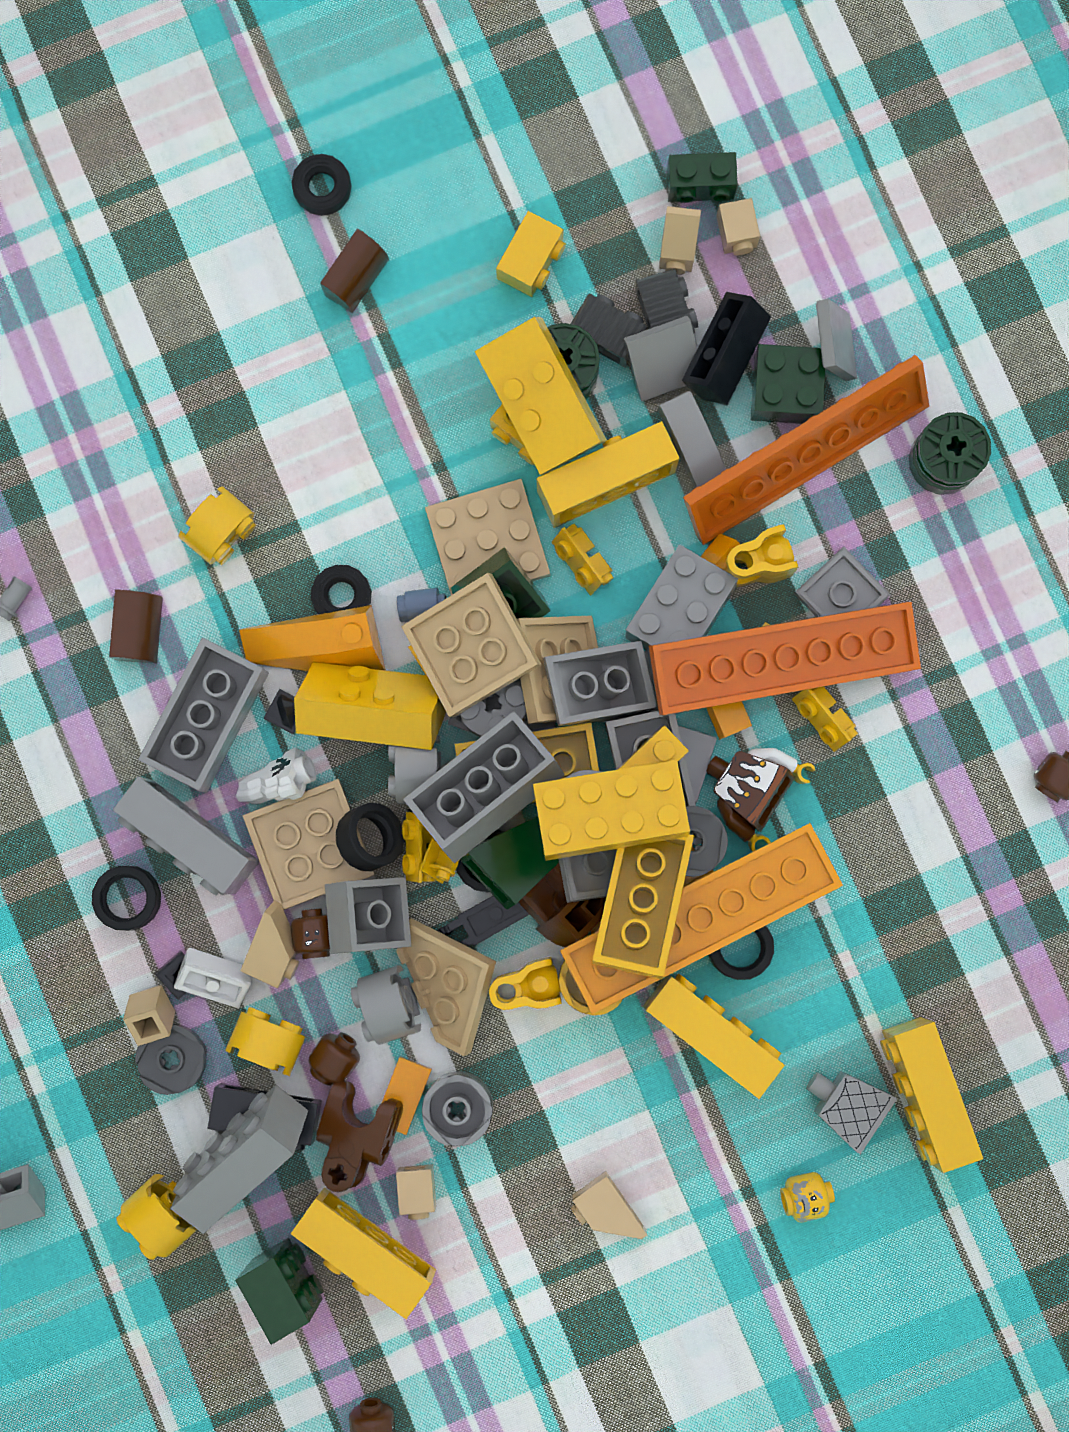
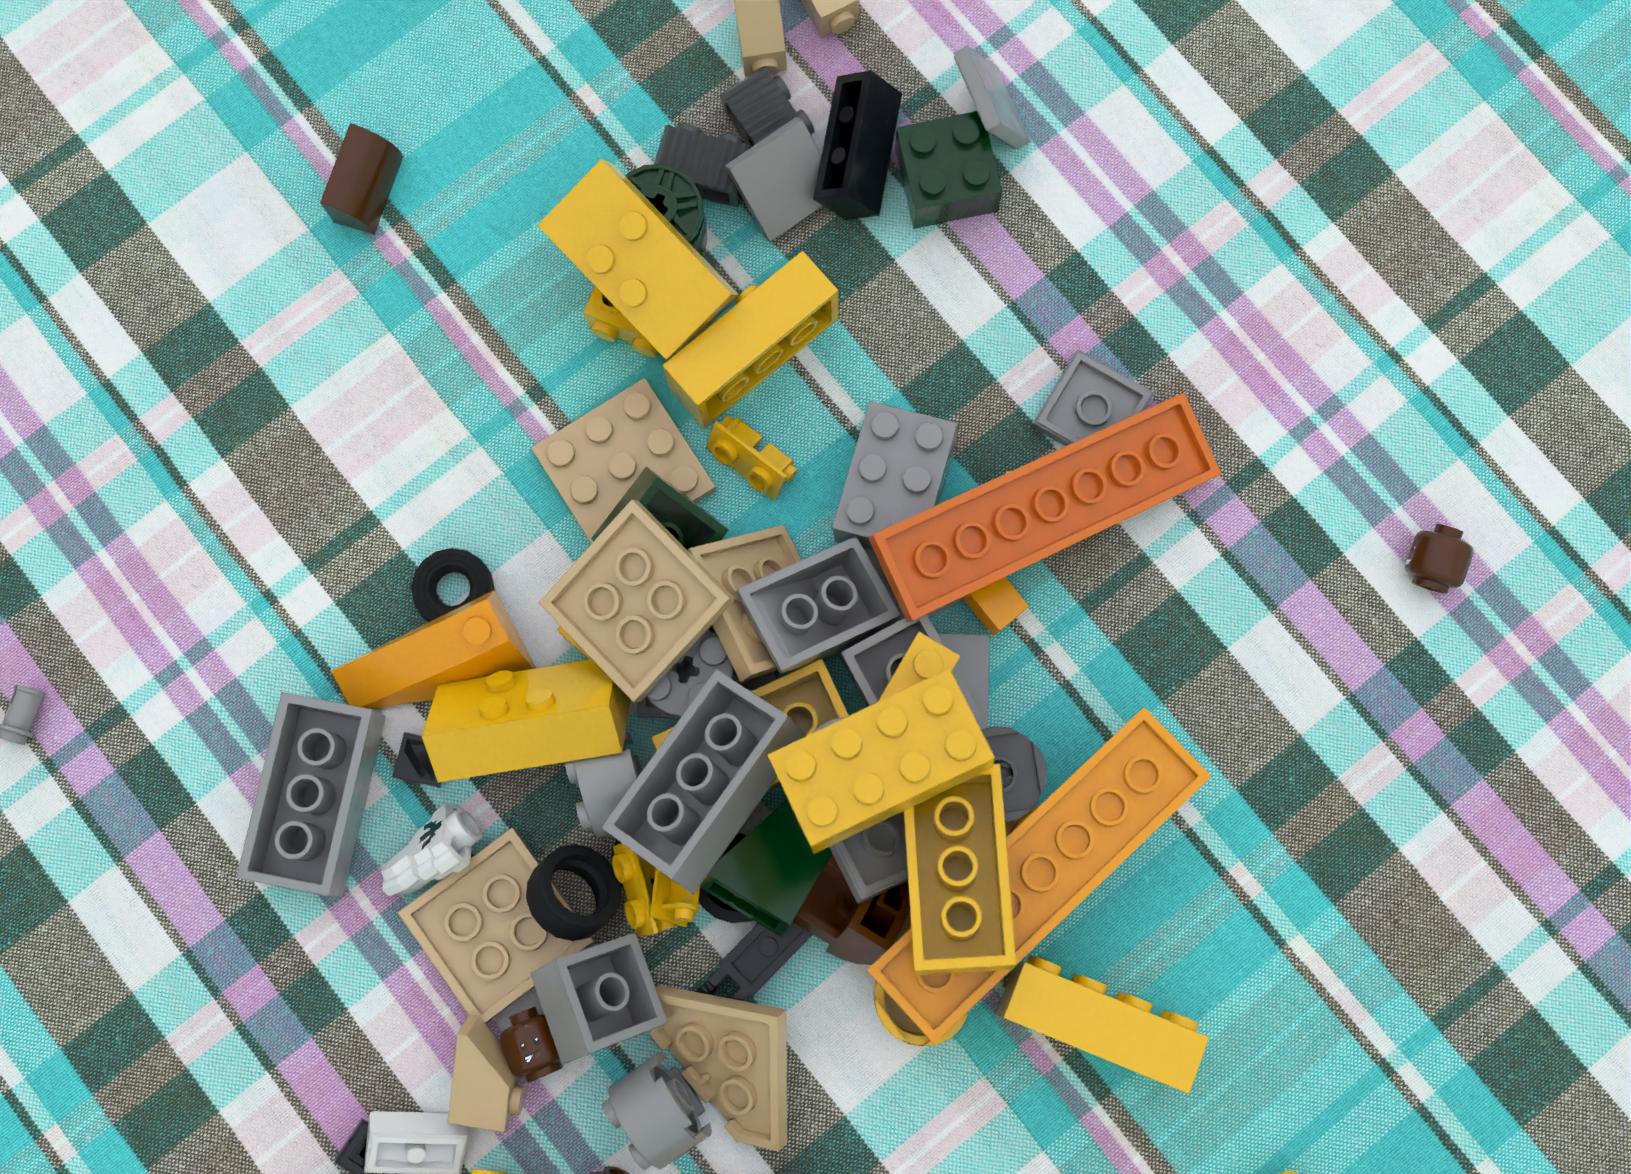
camera: 20 degrees left, 5 degrees down
(102, 886) = (233, 1069): black tyre -> none
(135, 626) = (193, 705): reddish brown brick -> none
(186, 836) = (326, 962): light grey brick -> none
(217, 526) = (267, 544): yellow brick -> none
(316, 165) = (279, 66): black tyre -> none
(417, 602) = (550, 569): sand blue brick -> none
(530, 254) = (579, 100): yellow brick -> none
(534, 985) = (846, 1027): yellow piece -> none
(692, 438) = (859, 279): light grey slope -> none
(719, 550) = (927, 395): light orange tile -> none
(753, 788) = (1055, 686): torso -> none
(753, 970) = (1127, 922): black tyre -> none
(766, 558) = (984, 390): yellow piece -> none
(808, 450) = (995, 242): orange plate -> none
(832, 728) = (1132, 580): yellow hinge -> none
(850, 1107) = (1309, 1068): light grey torso -> none
(932, 1095) = (1410, 1021): yellow brick -> none
(940, 469) = (1169, 218): dark green wheel -> none

